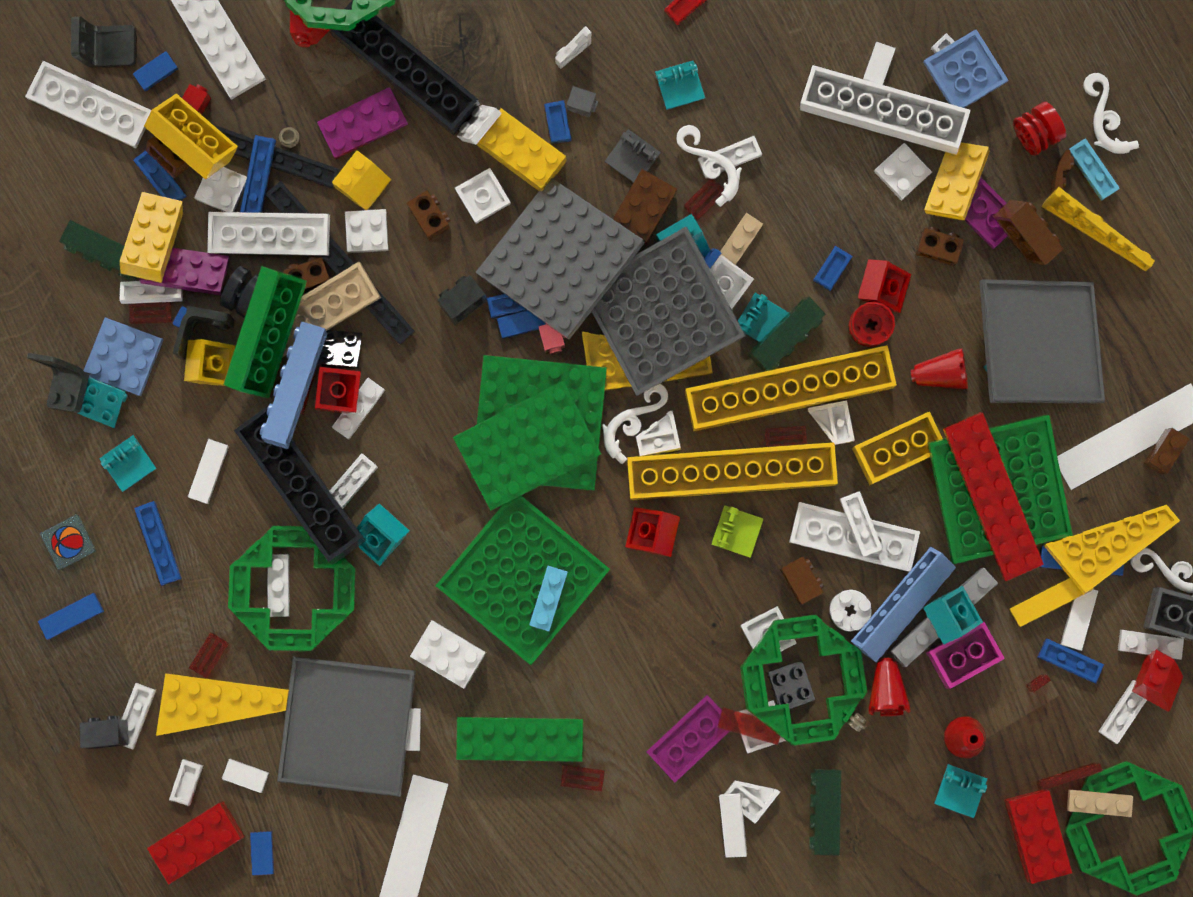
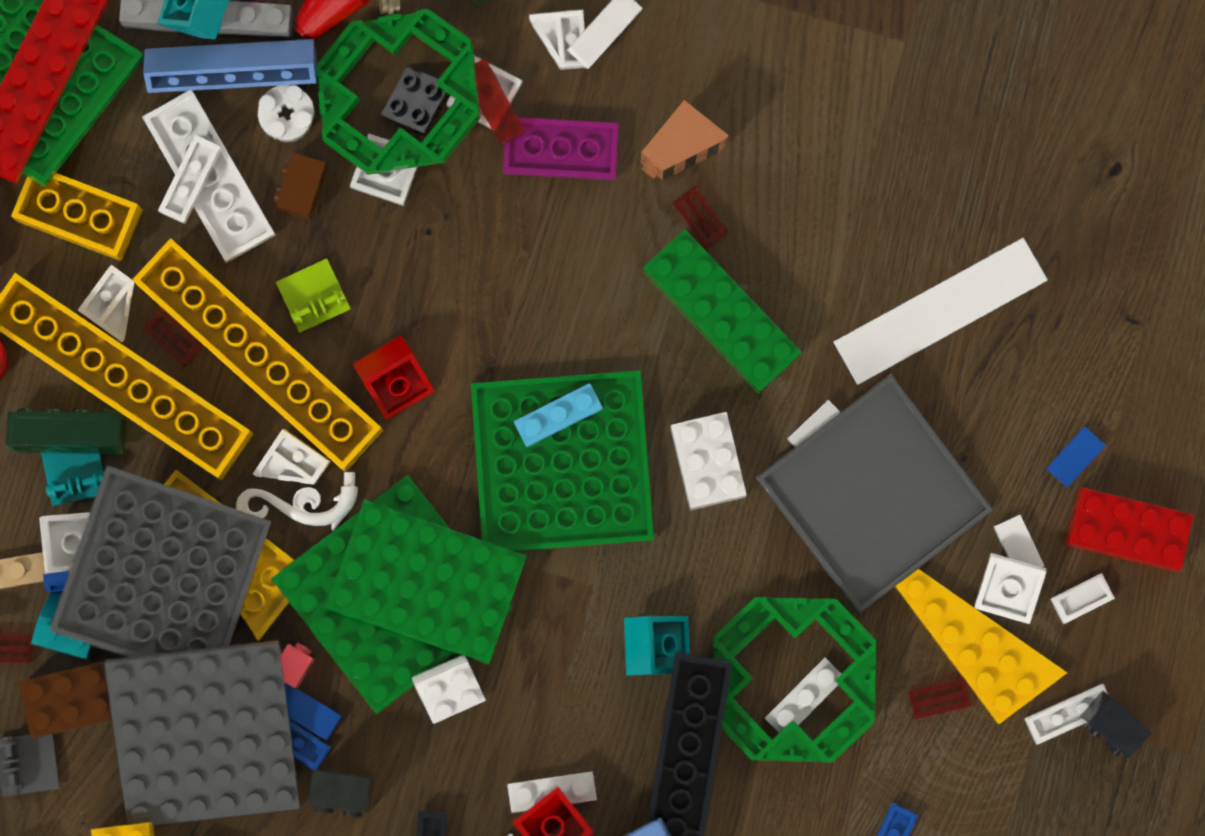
camera: 135 degrees left, 0 degrees up
(227, 748) = (1010, 588): none -> white plate
(353, 479) = (627, 725): white plate -> none
(461, 404) = (448, 689): none -> white plate
(631, 805) = (682, 143): none -> nougat slope

